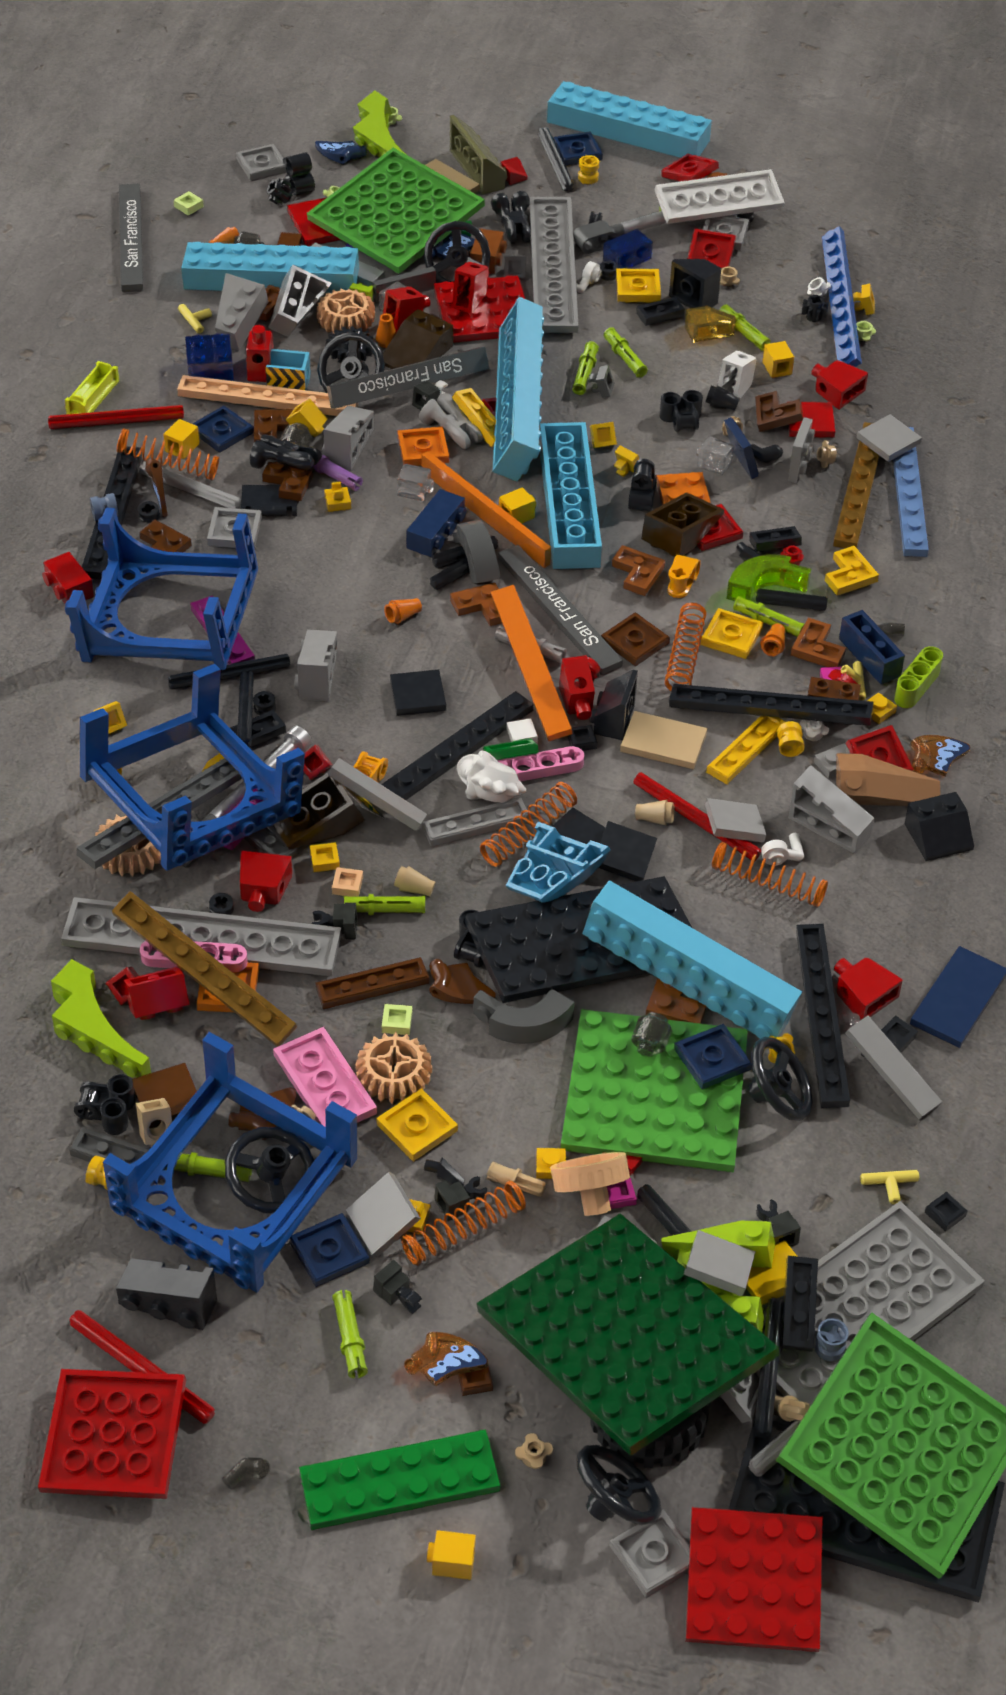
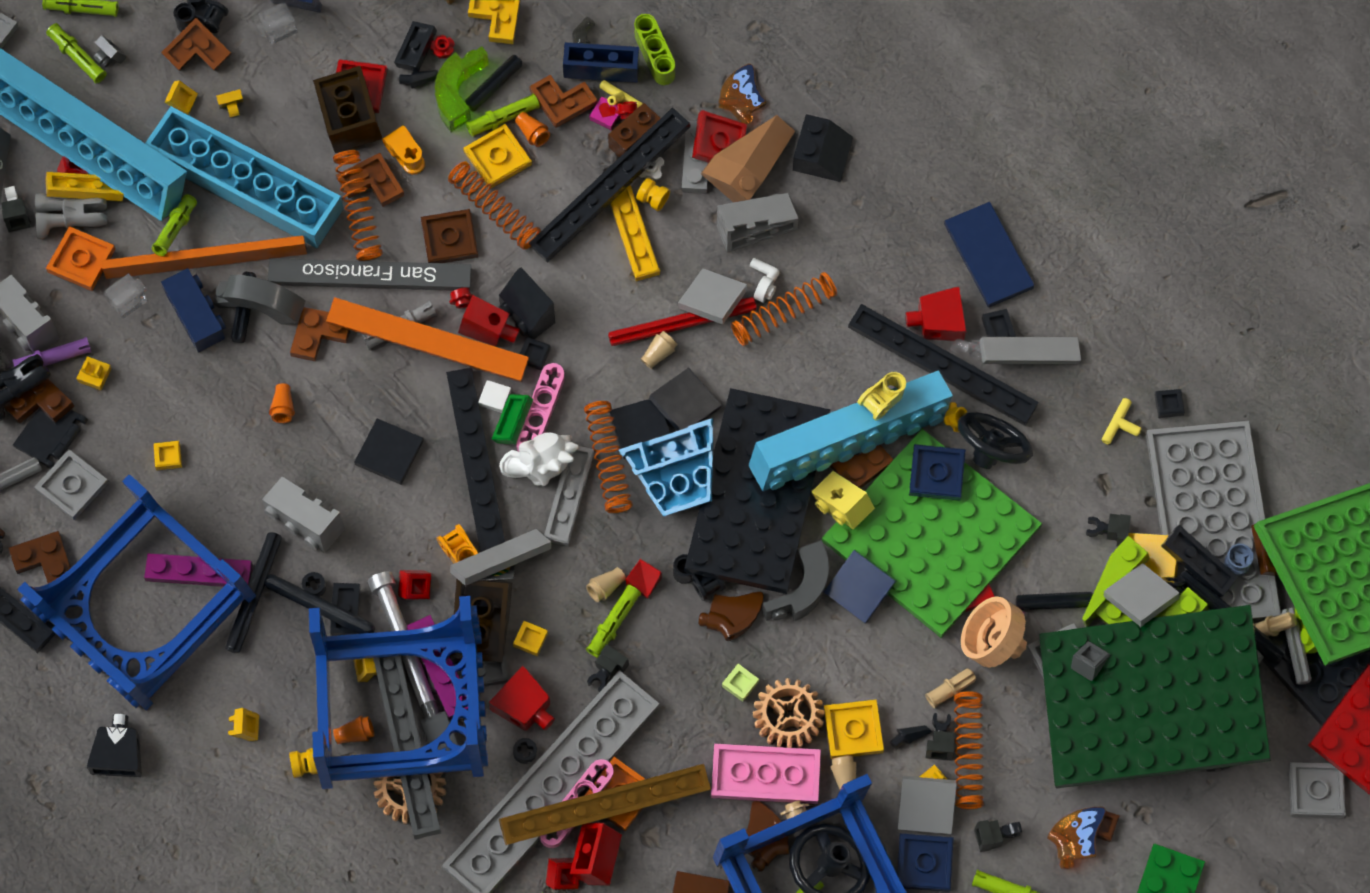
camera: 55 degrees left, 20 degrees up
(31, 654) = (116, 750): none -> black torso
(65, 575) = (37, 667): red brick -> none
(154, 785) = (355, 731): none -> orange cone
(305, 570) = (167, 455): none -> yellow tile
(347, 882) = (570, 636): light nougat plate -> none
(370, 1138) = (843, 769): none -> tan cone
(372, 983) = (686, 679): reddish brown tile -> none
(439, 904) = (644, 578): none -> red slope
(450, 574) = (263, 336): black axle -> none
(502, 477) = (178, 218): none -> lime pin
(519, 504) = (222, 227): yellow brick -> none
(530, 1459) = (1190, 828): tan plate -> none
(546, 1158) = (949, 653): yellow plate -> none
(557, 1057) = (860, 586): none -> dark blue tile
(611, 1491) = (1264, 787): black piece -> none
(620, 1256) = (1089, 660): none -> dark grey slope
(624, 999) = (842, 500): none -> light yellow brick
(634, 536) = (373, 250): none -> orange piece
(642, 486) = (278, 112): black piece -> none
(651, 1034) = (893, 504): clear smoke head -> none
(654, 419) = (196, 40): none -> dark orange plate
(663, 740) = (583, 290): tan tile -> none
(674, 485) = (295, 78): orange plate -> none
(737, 952) = (880, 398): none -> light yellow piece
(755, 1289) = (1176, 583): none -> black bush
(882, 708) = (661, 101): yellow plate -> none

